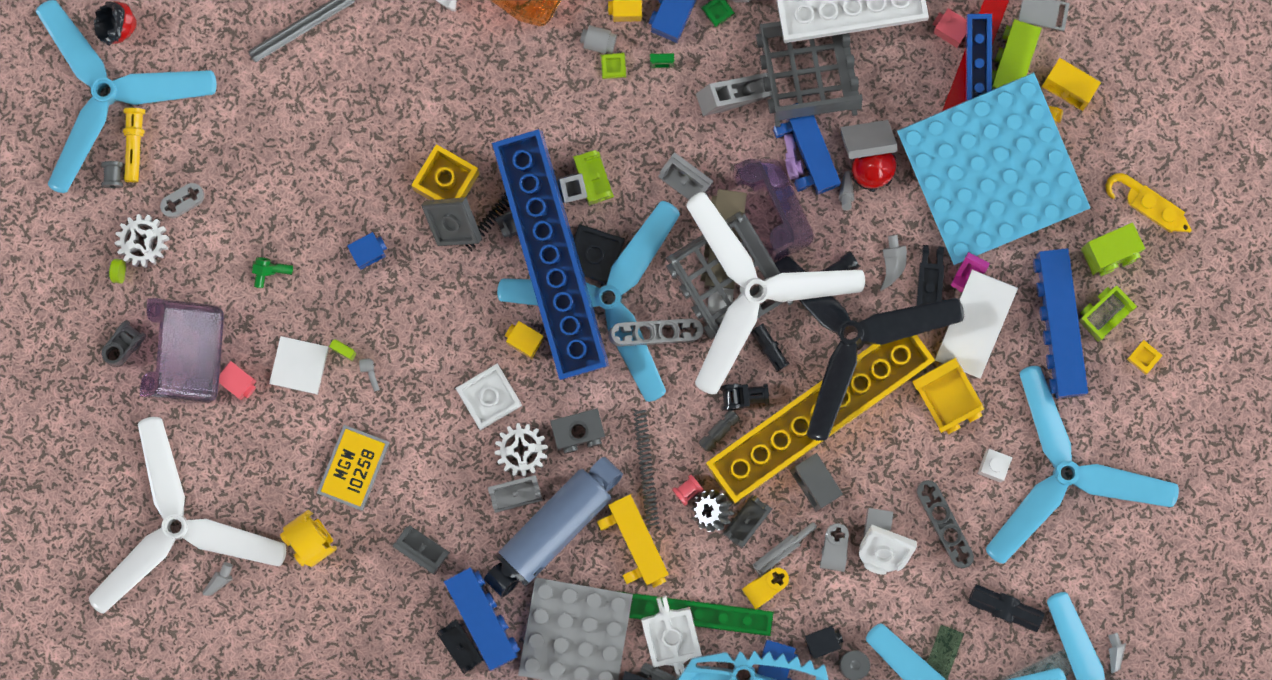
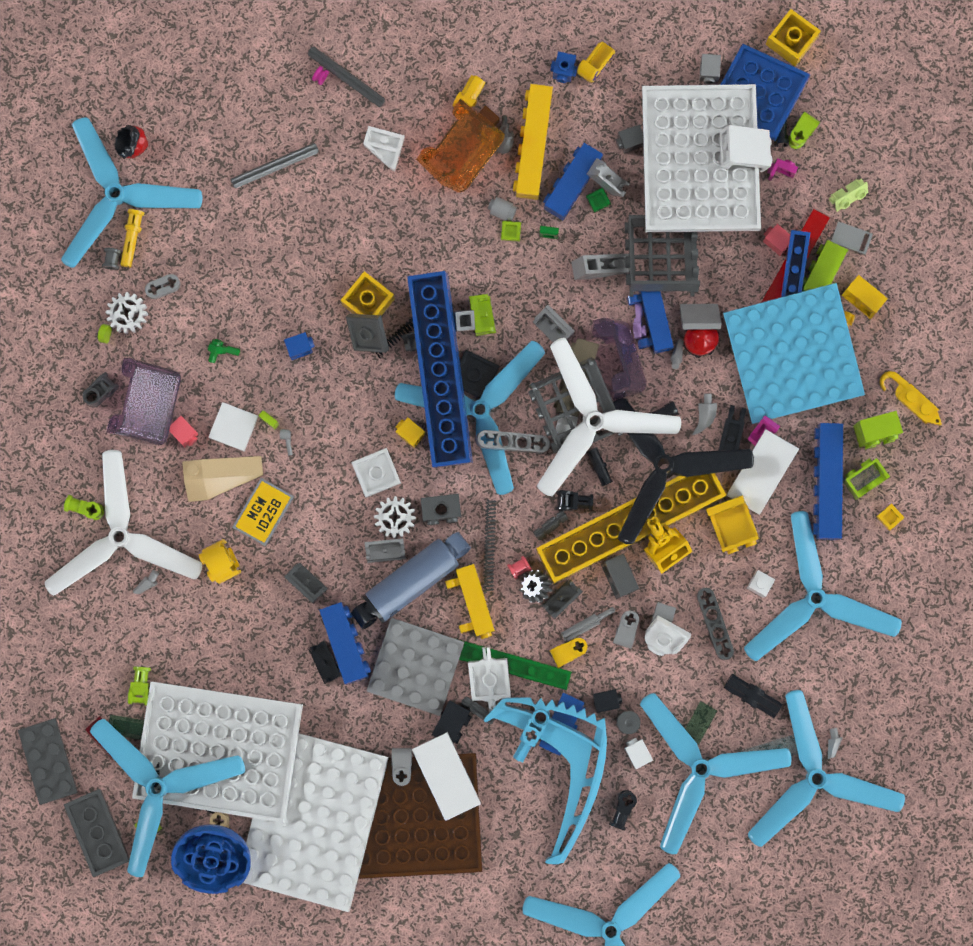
camera: 10 degrees right, 0 degrees up
(124, 496) = (83, 507): none -> lime connector
(284, 432) = (213, 477): none -> tan wedge
(870, 435) = (666, 546): none -> yellow brick

